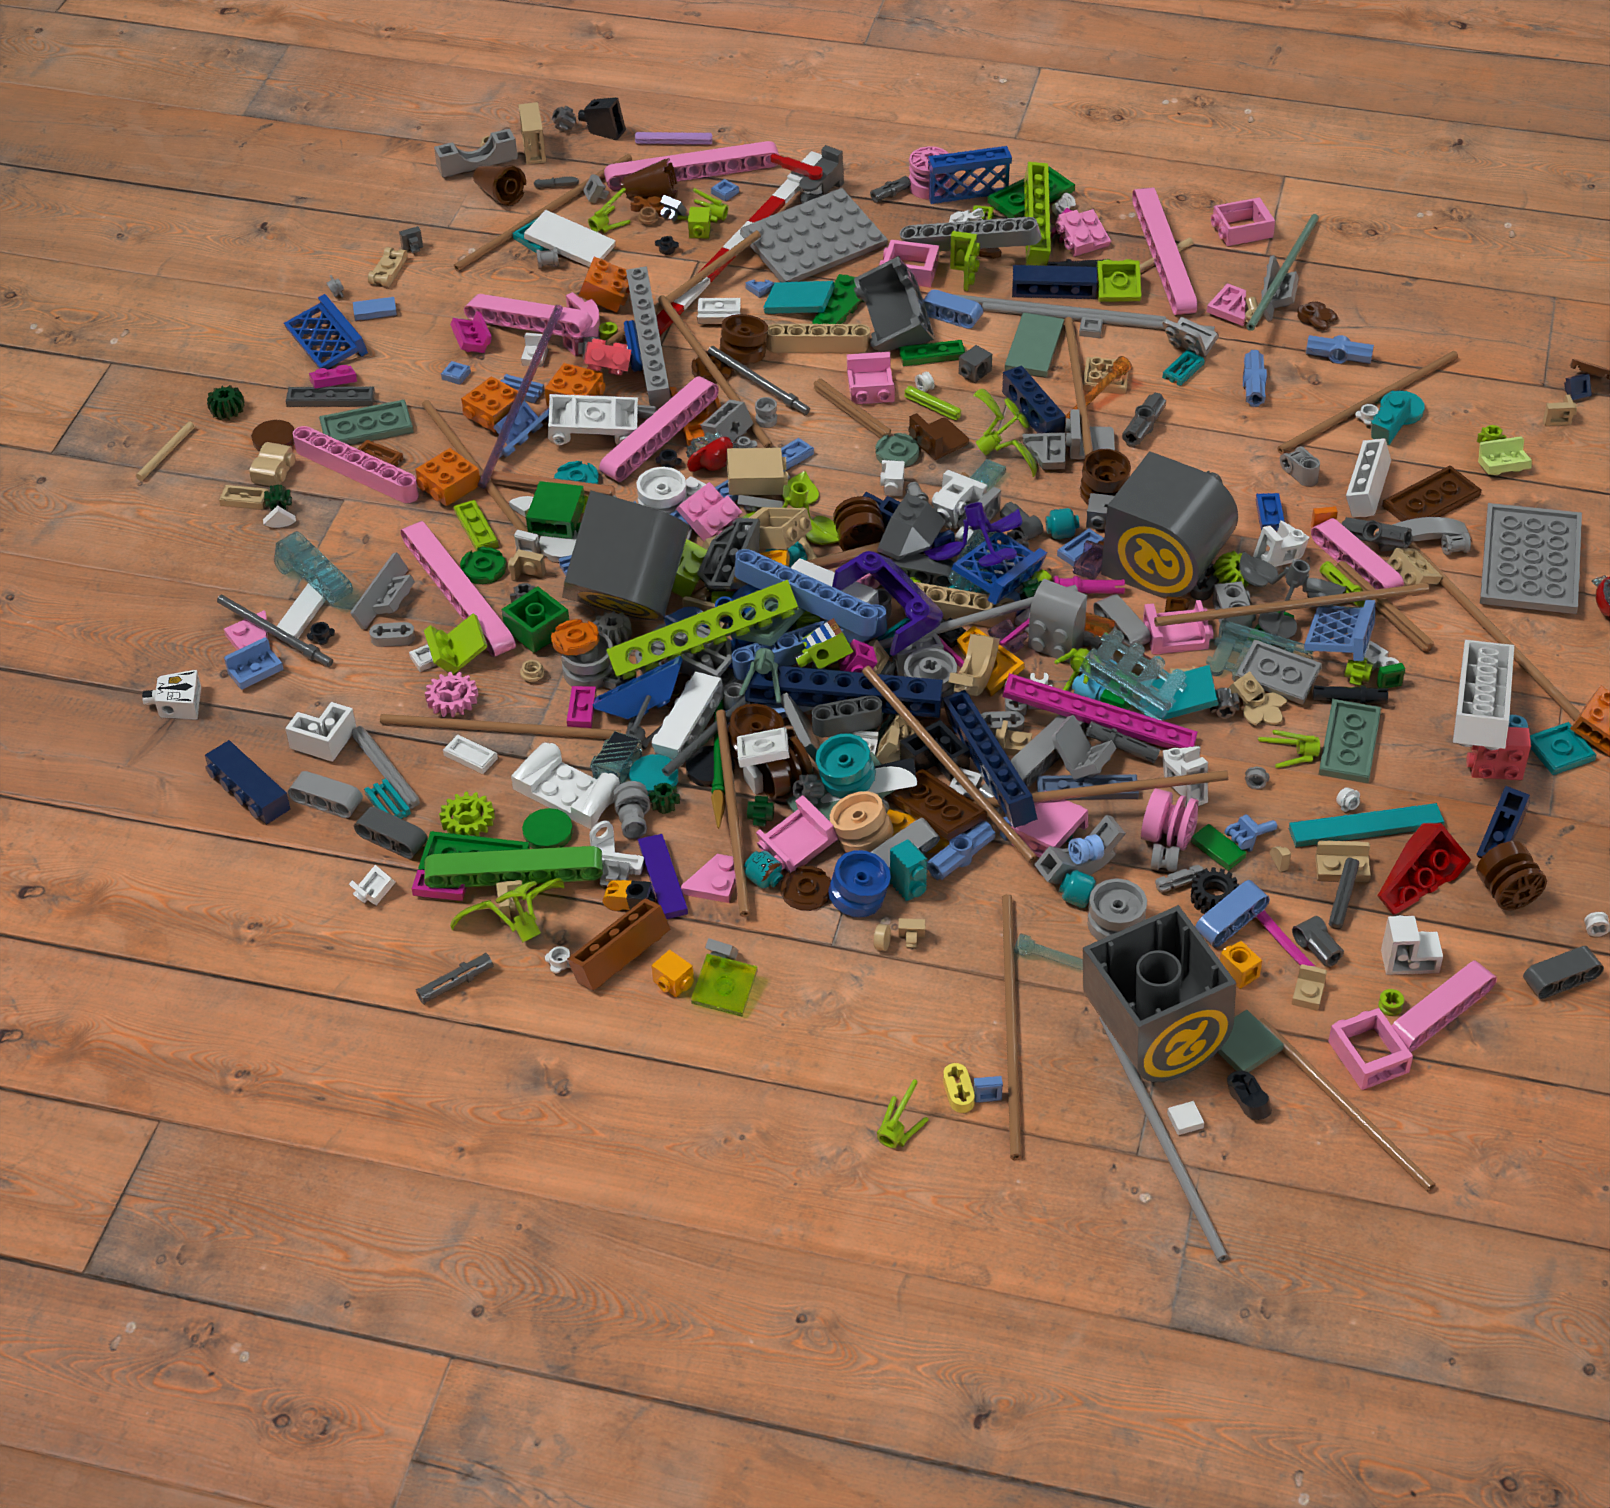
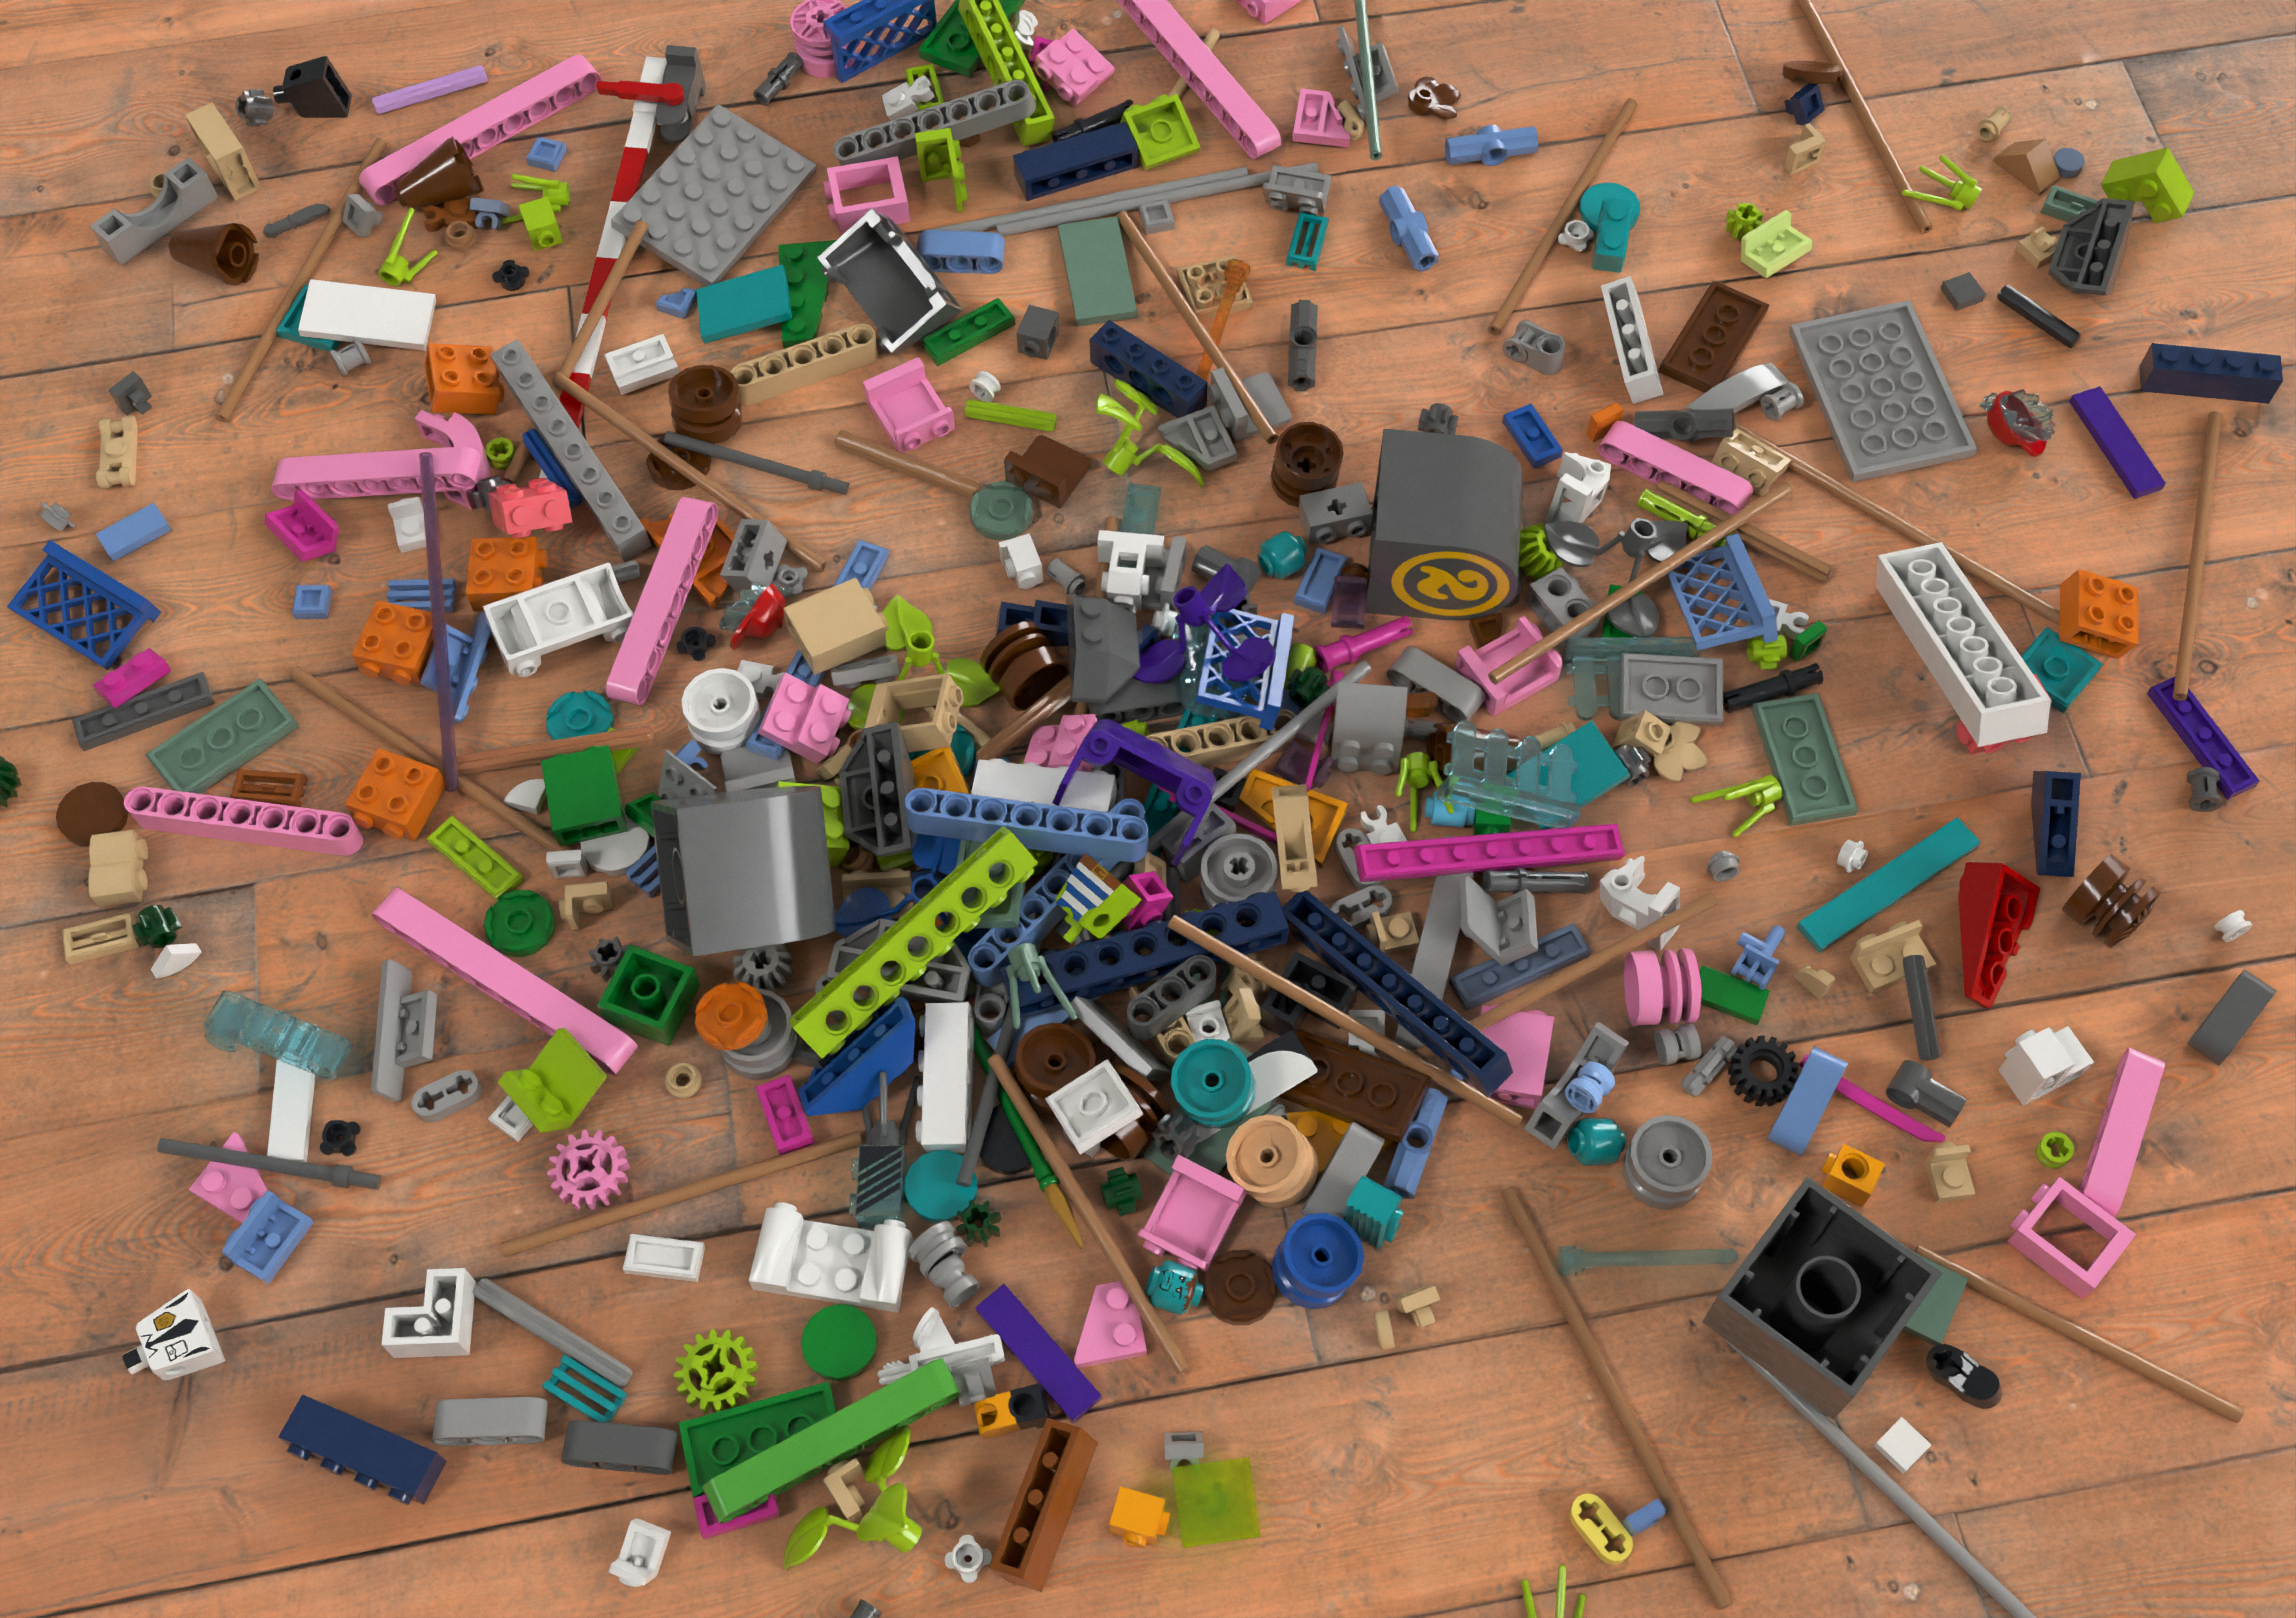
camera: 25 degrees left, 15 degrees up
(766, 416) = (794, 514): light grey wheel -> none

